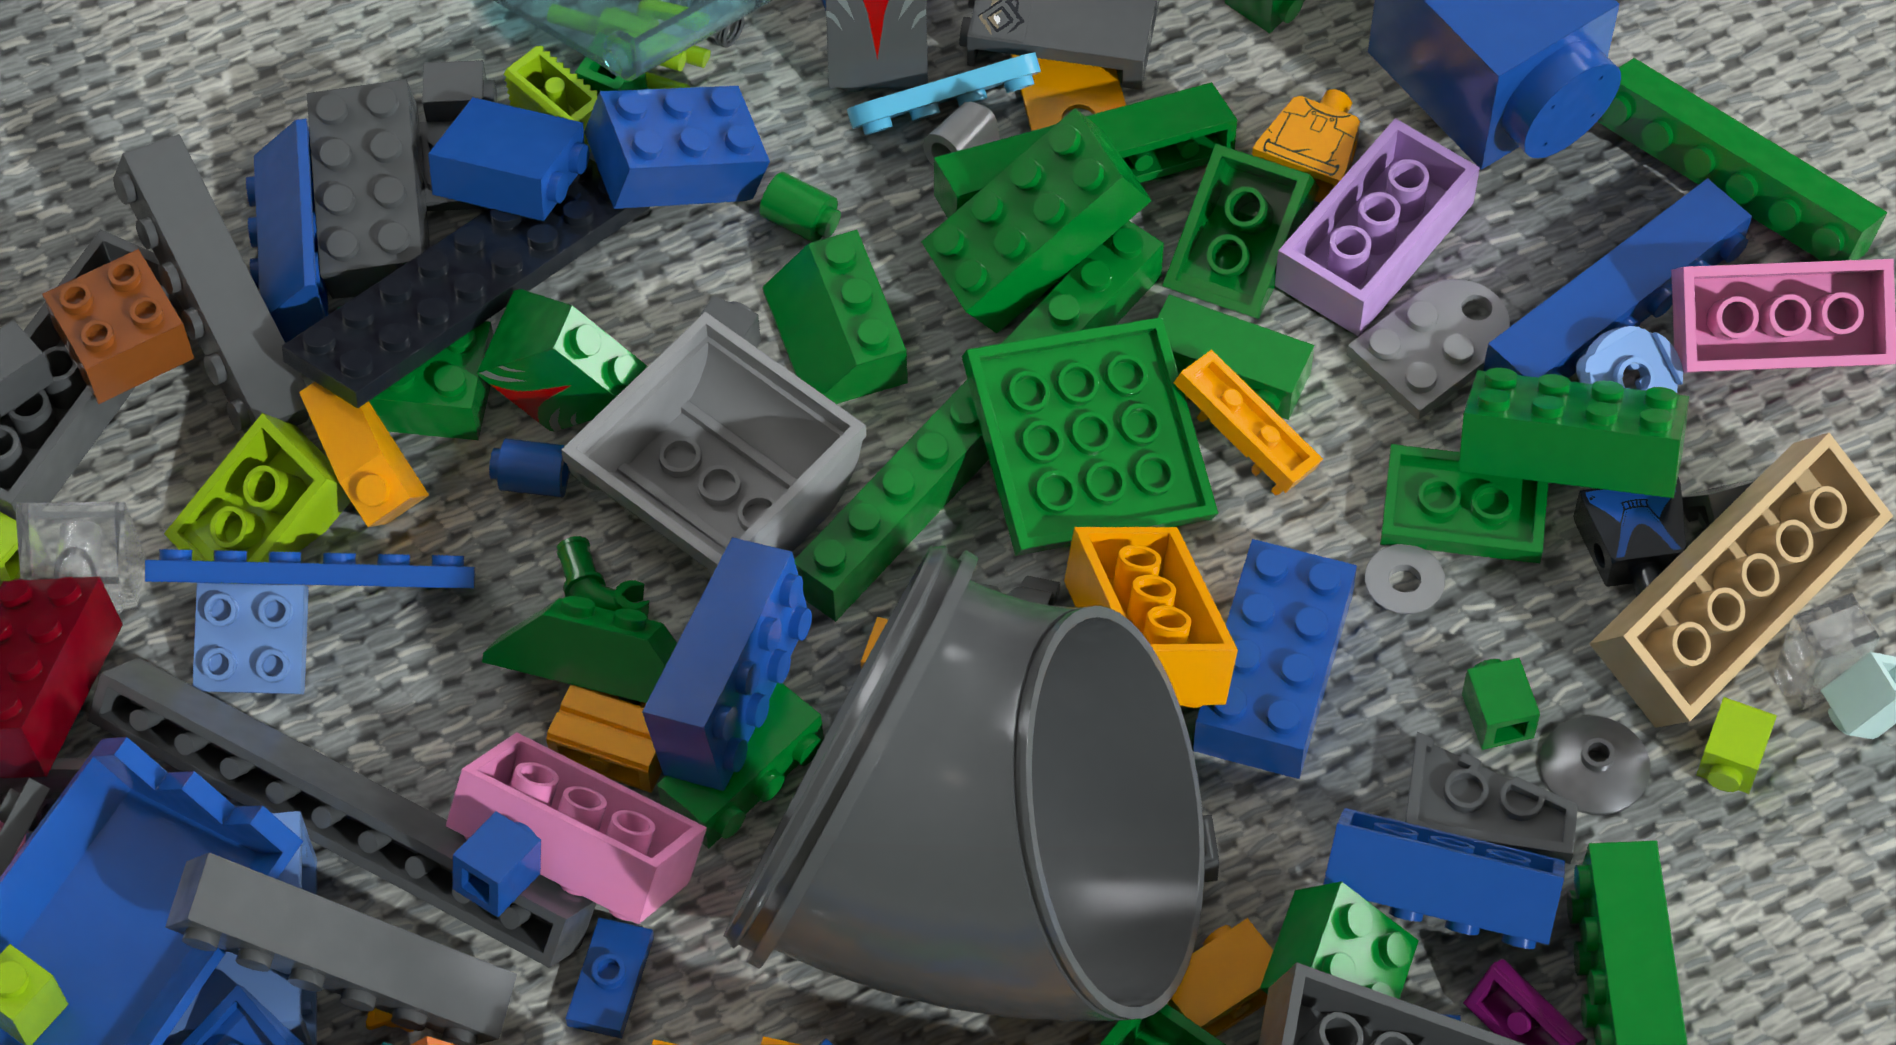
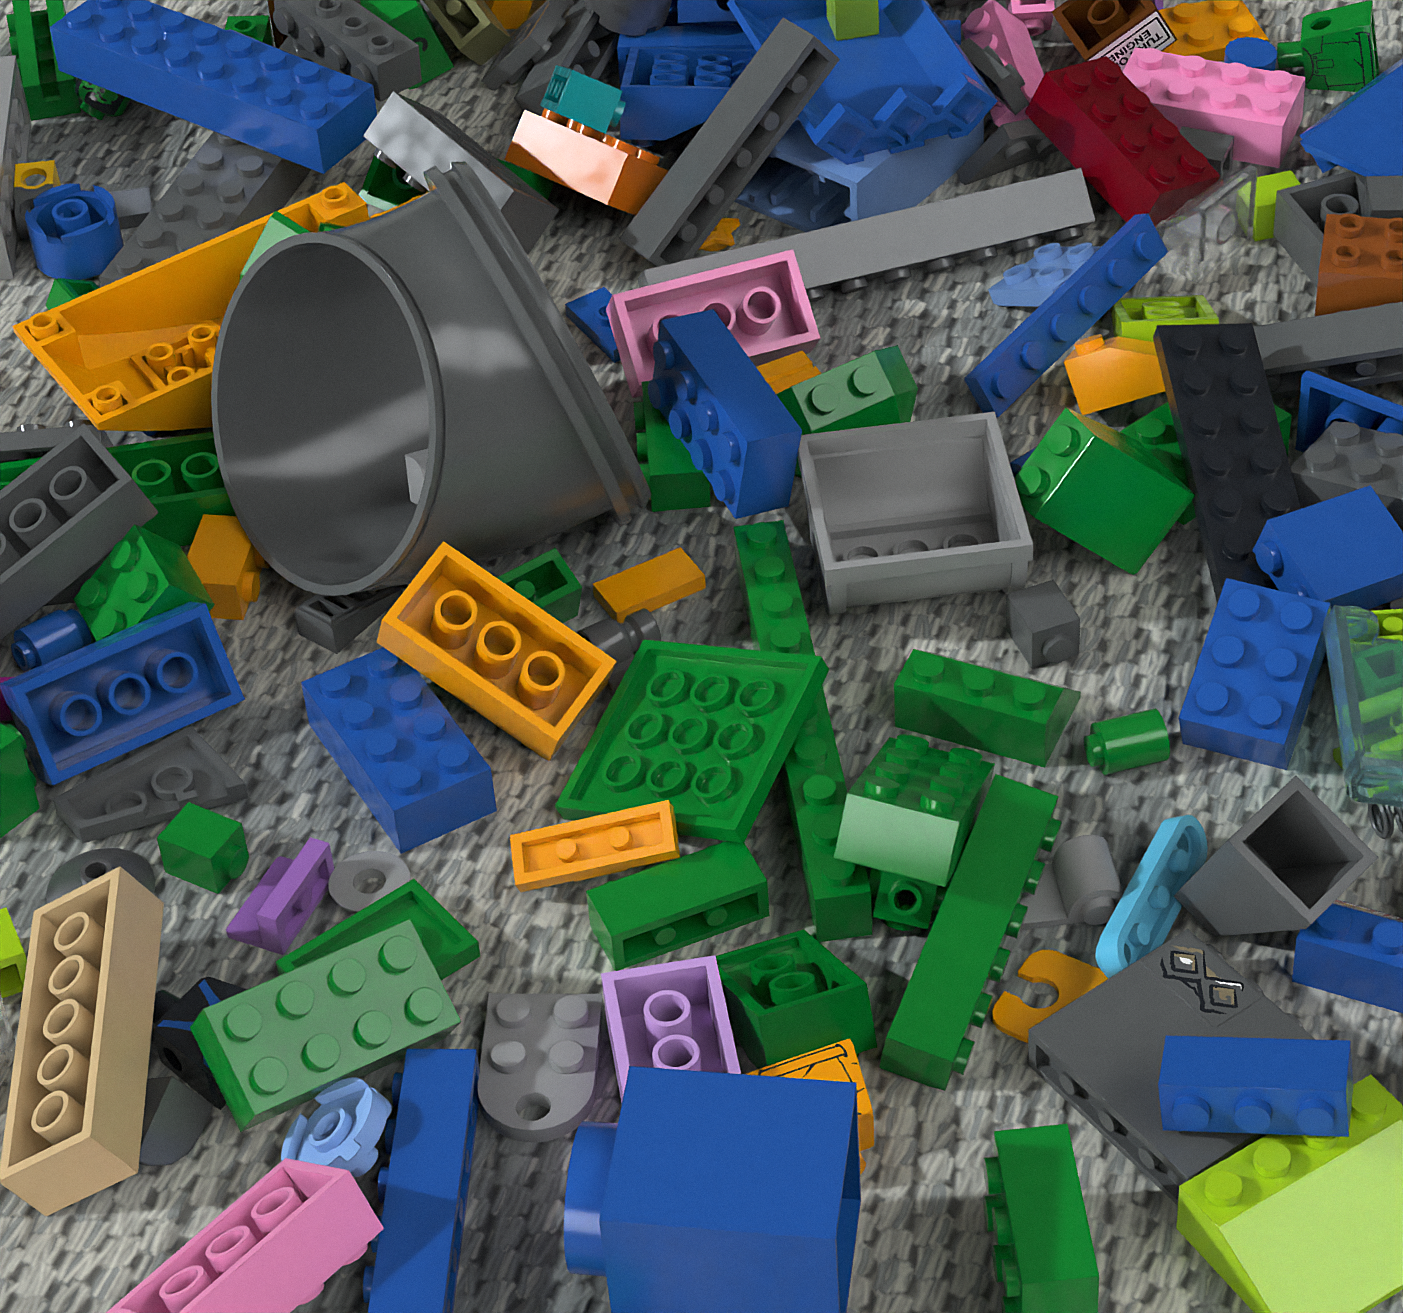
camera: 135 degrees right, 15 degrees down
(497, 863) = (708, 236): blue brick -> none
(1479, 617) = (284, 899): none -> medium lavender panel

